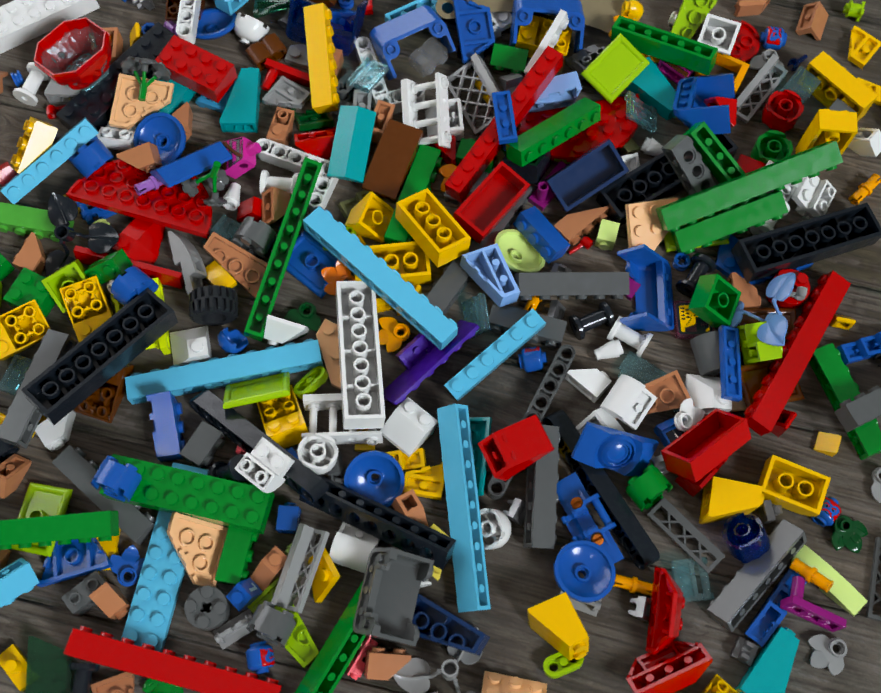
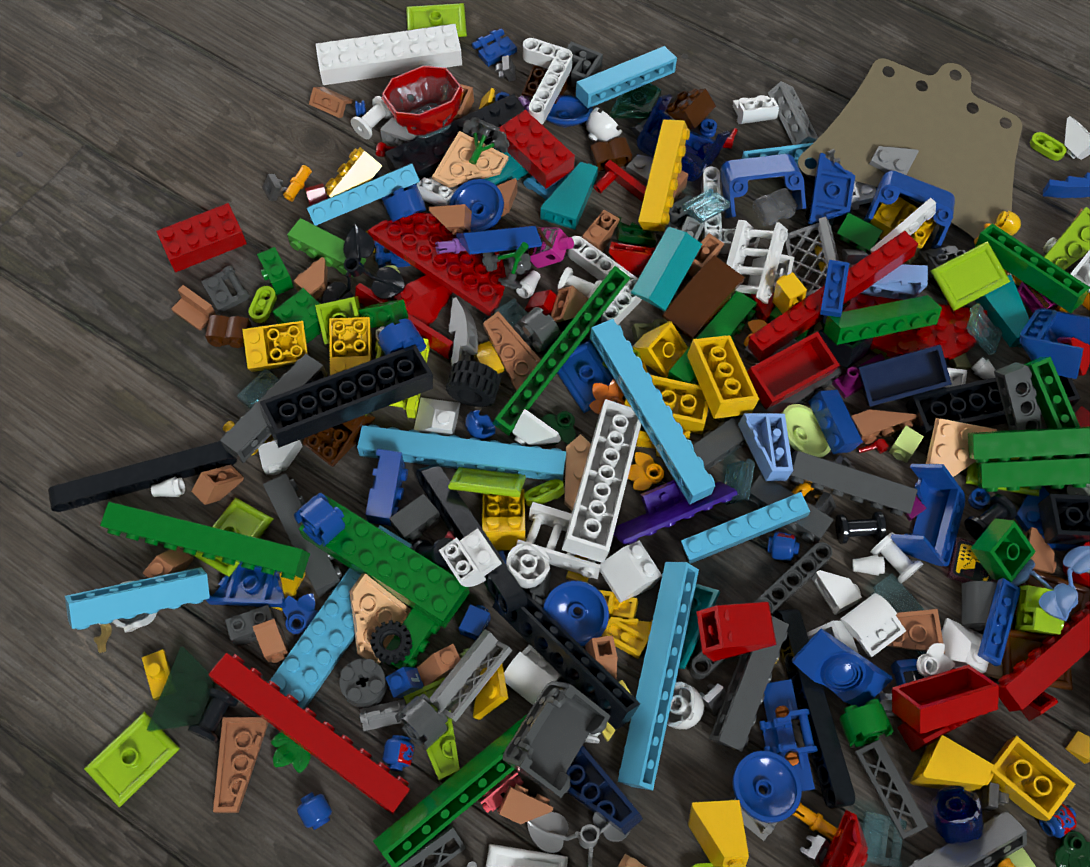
camera: 20 degrees right, 5 degrees down
(211, 555) = (391, 655): none -> black tyre
(286, 94) = (617, 201): light grey wing -> none
(465, 133) = (788, 292): none -> yellow brick

